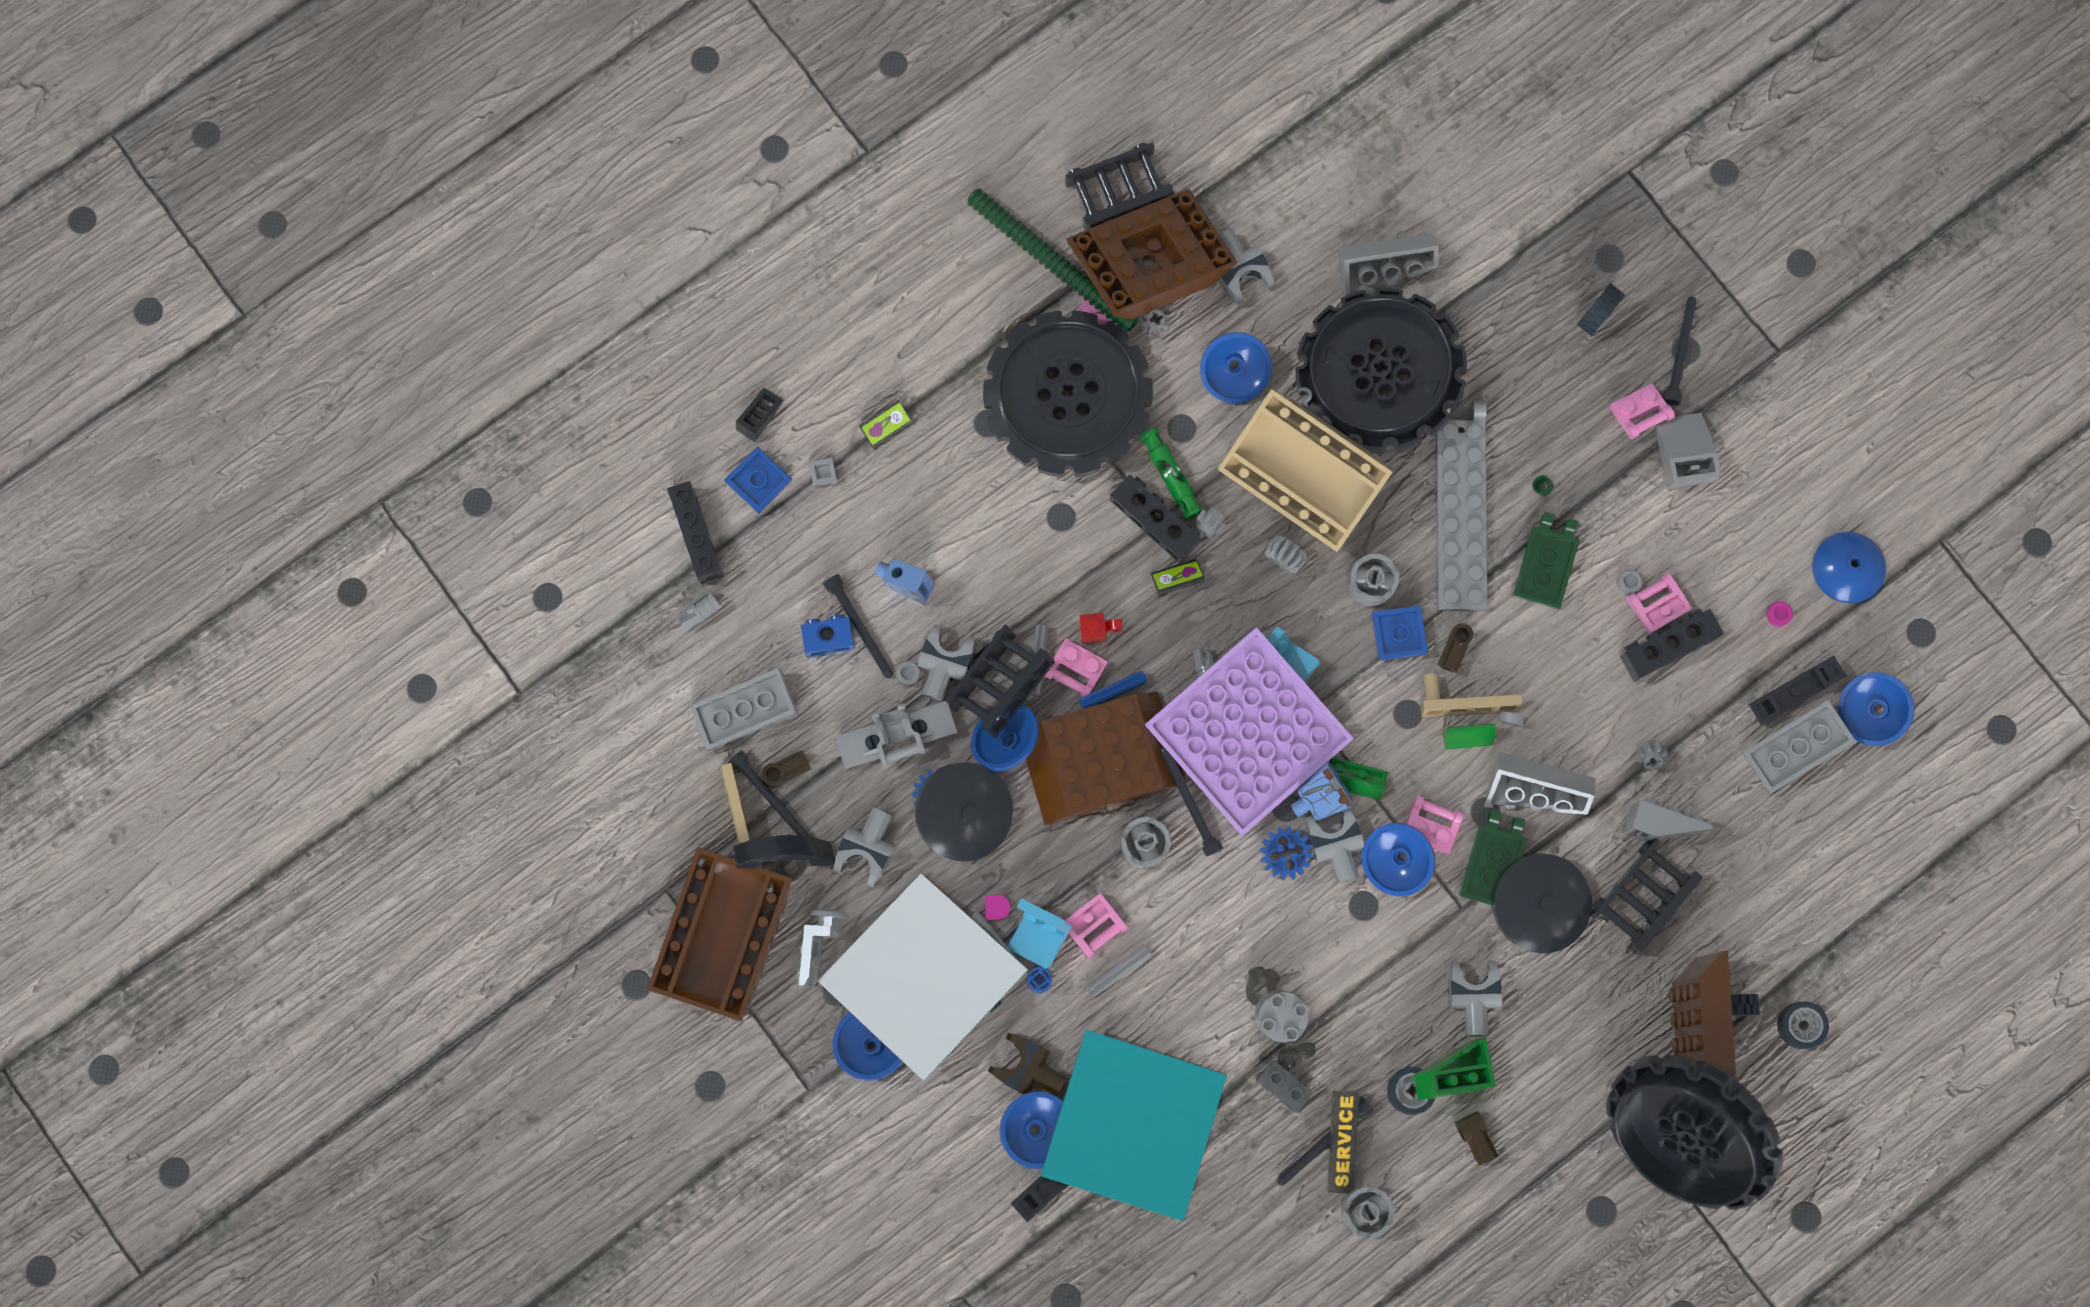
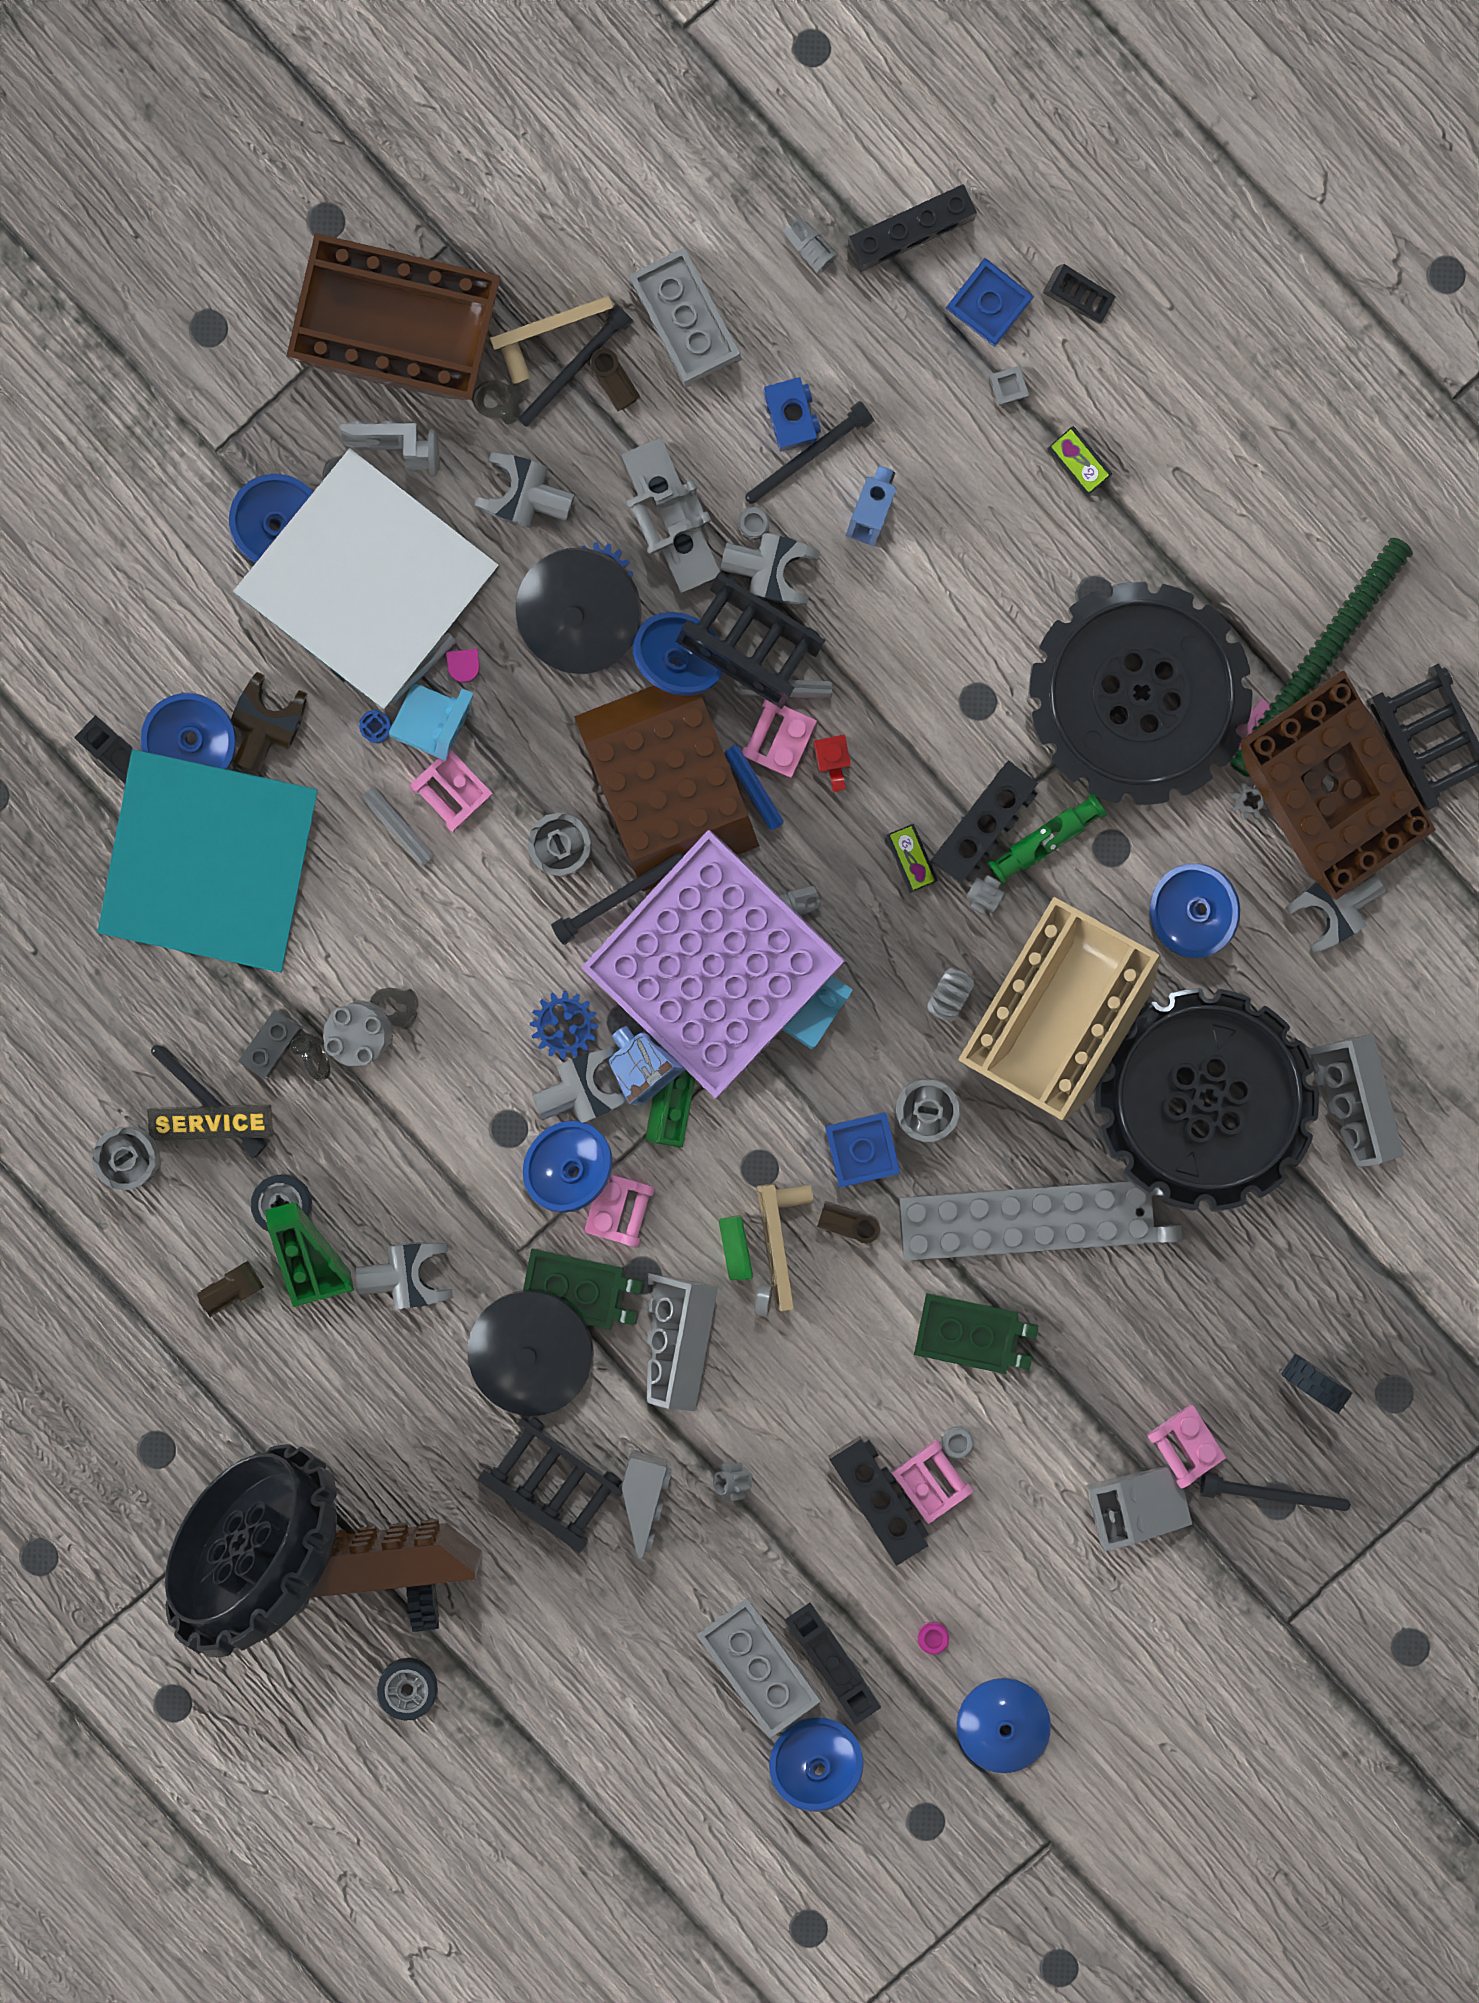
camera: 90 degrees right, 10 degrees up
(783, 848) = (508, 387): black slope -> none
(1539, 487) = (1074, 1318): dark green hinge -> none

